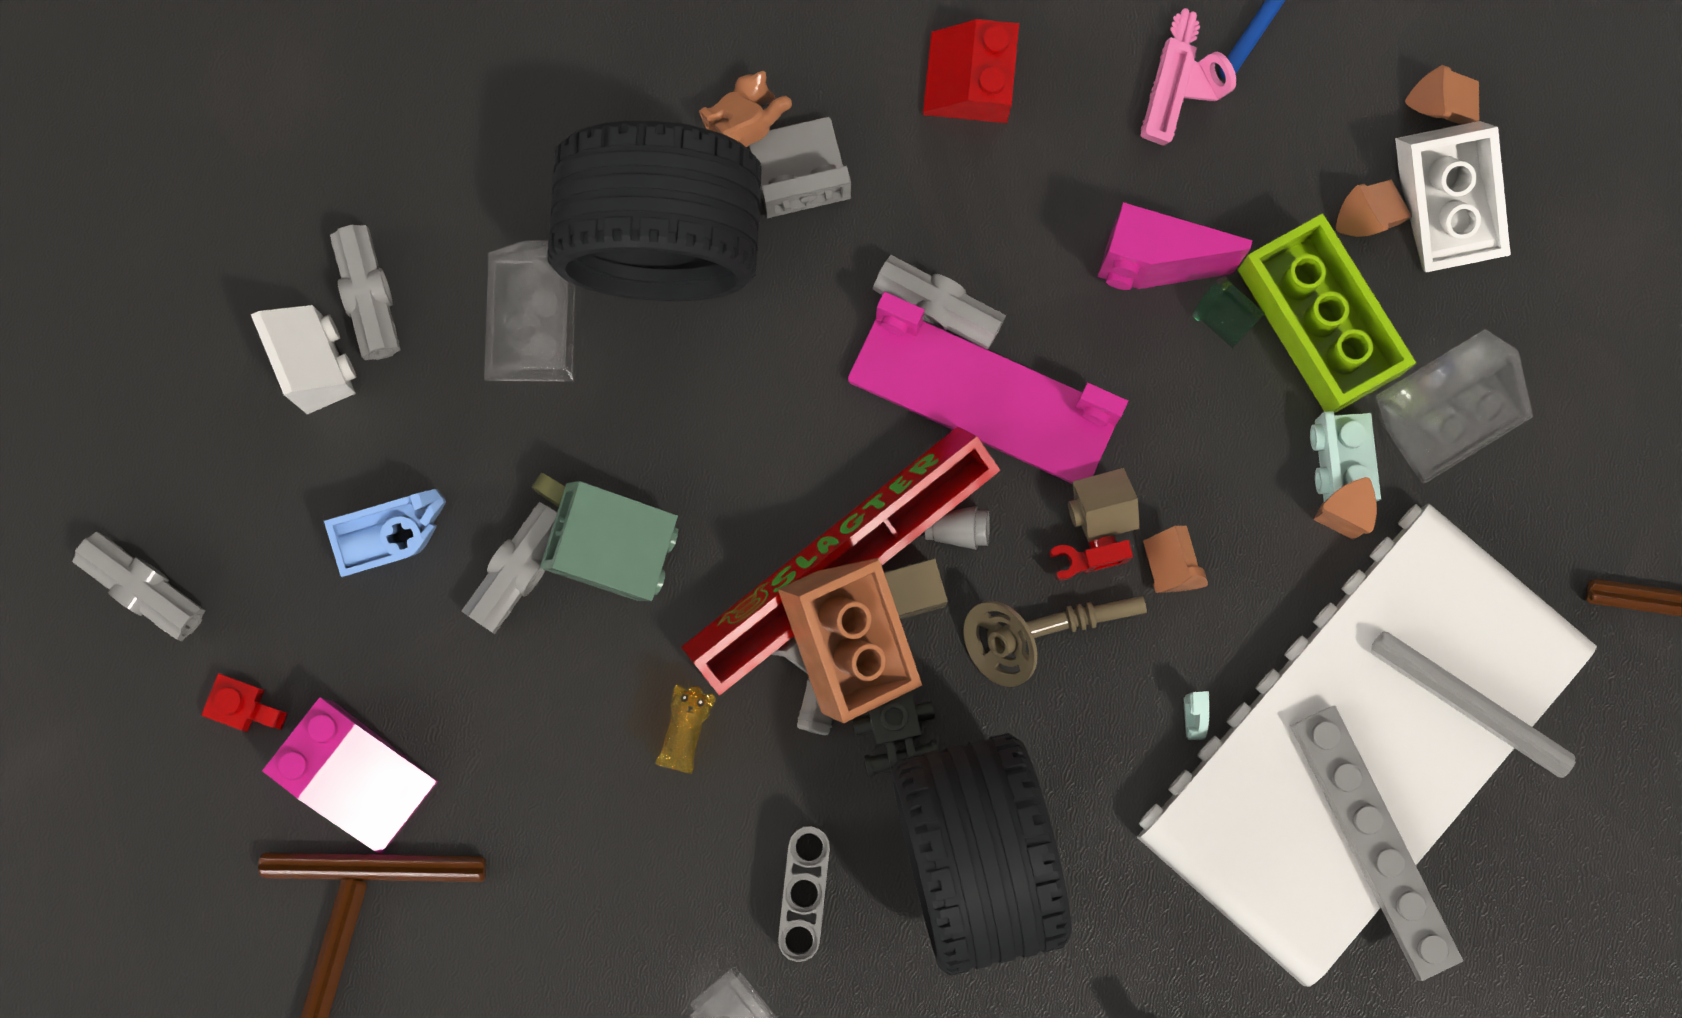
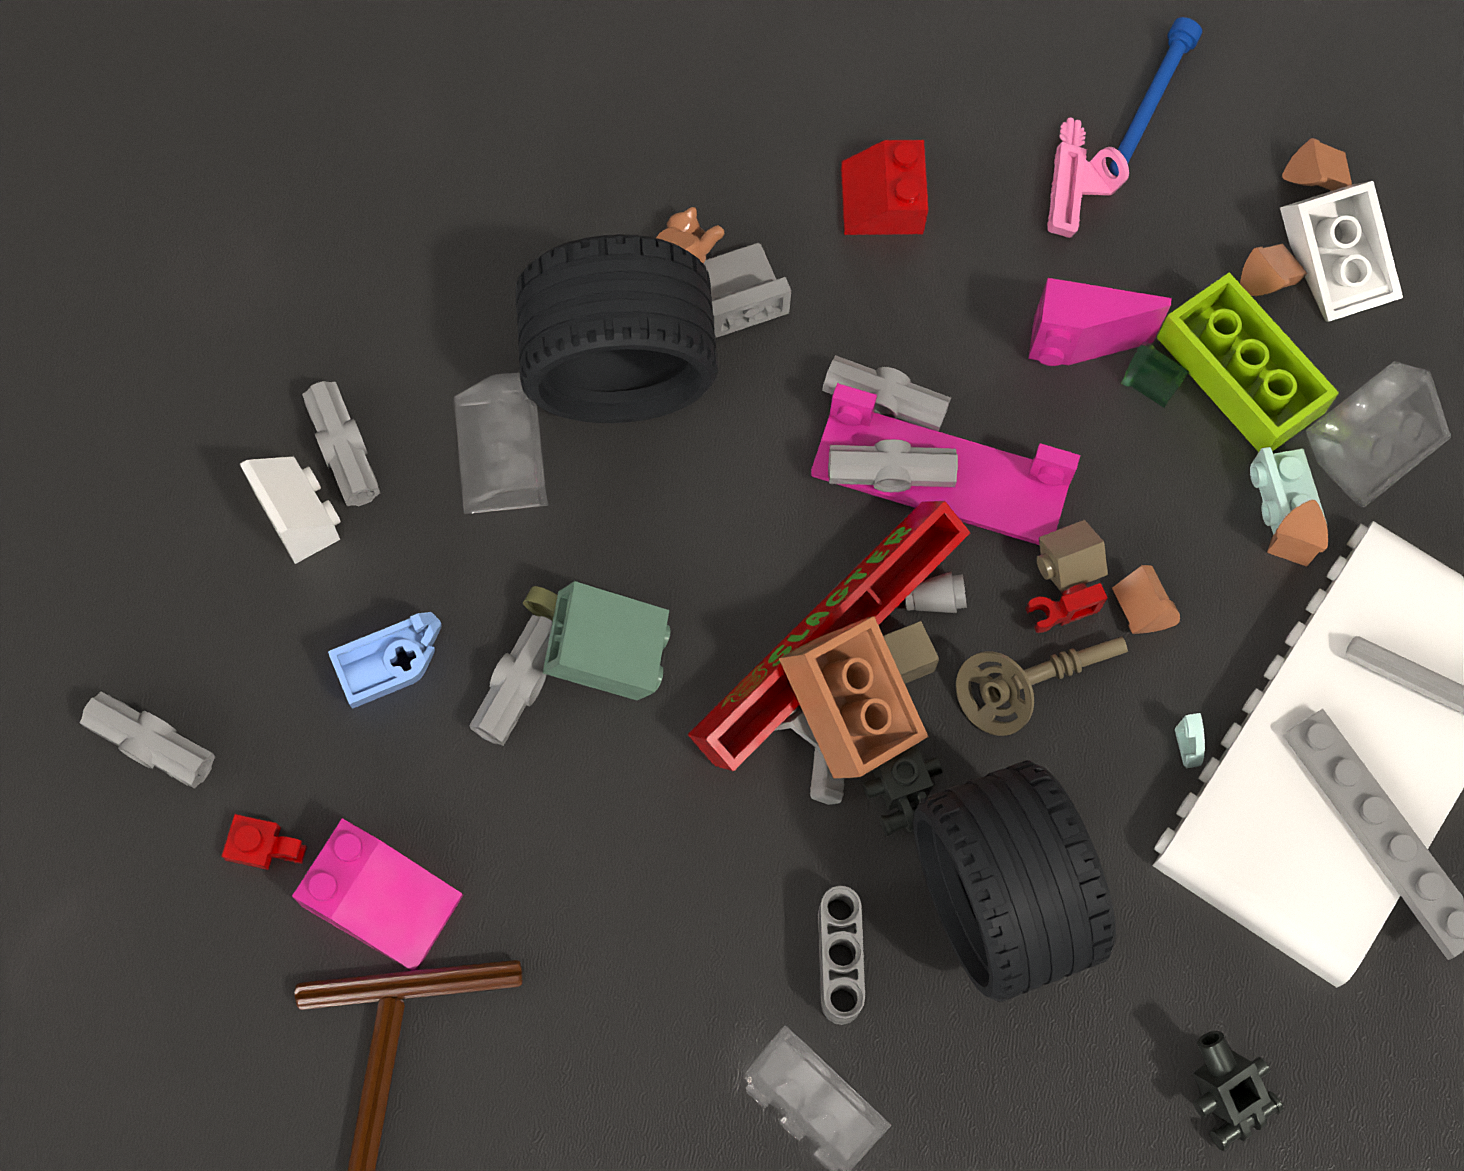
camera: 10 degrees left, 10 degrees down
(681, 740) = (703, 810): clear yellow animal -> none
(931, 385) = (892, 466): none -> light grey piece

